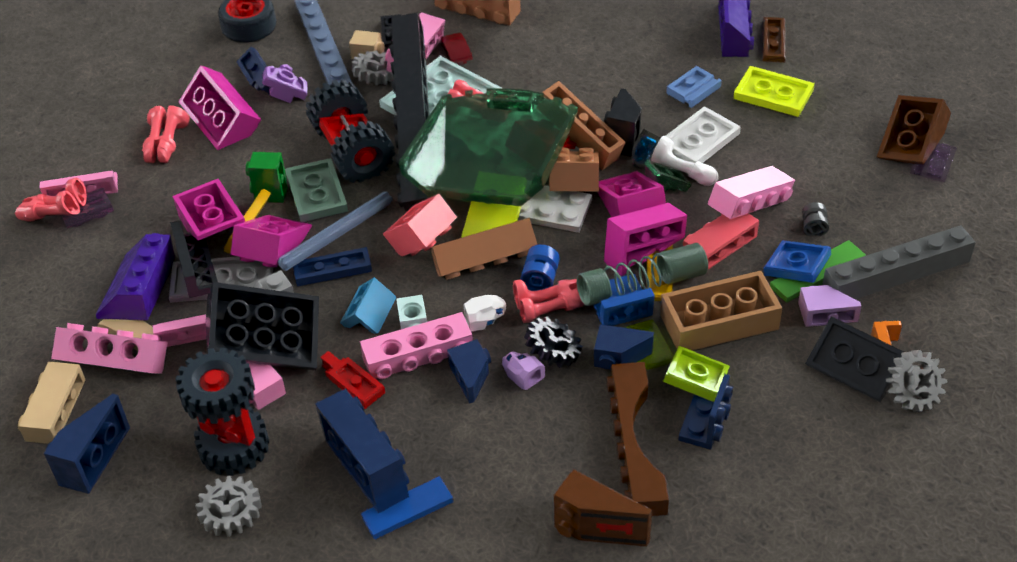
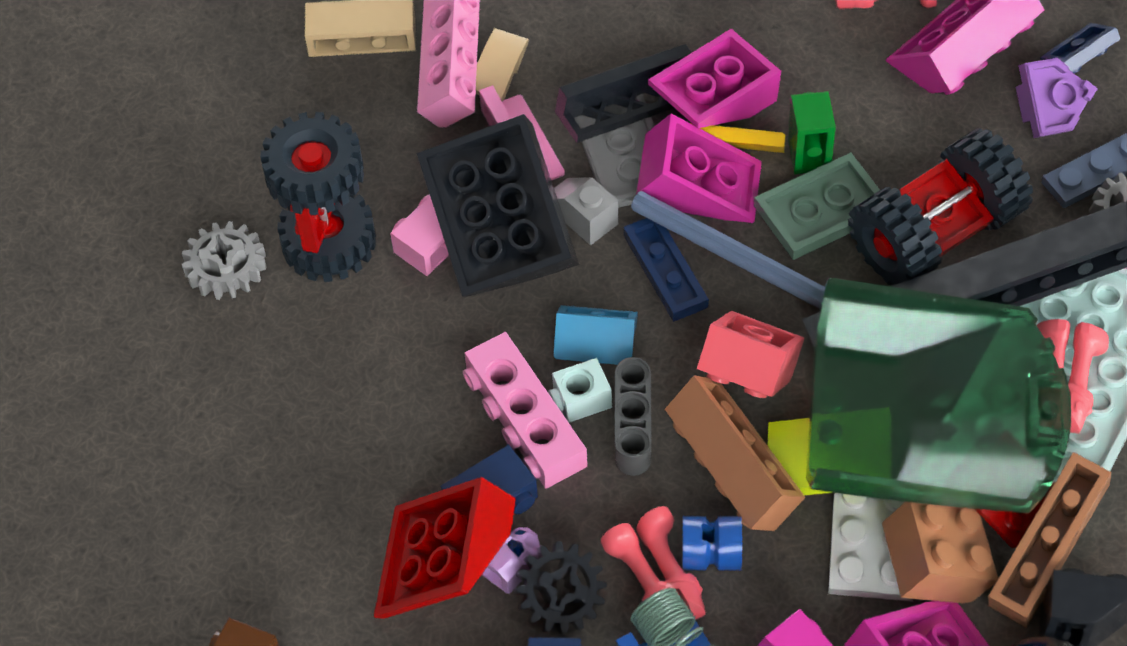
camera: 80 degrees right, 10 degrees up
(87, 445) = (281, 81): dark blue slope -> none
(139, 280) = (574, 46): dark purple slope -> none
(353, 378) = (445, 354): red hinge -> none
(363, 450) = (306, 378): dark blue brick -> none
(420, 502) = (250, 464): blue tile -> none
(439, 293) = (633, 400): none -> dark grey beam
(483, 311) = (607, 481): white rock -> none
(514, 397) = (442, 545): none -> red slope

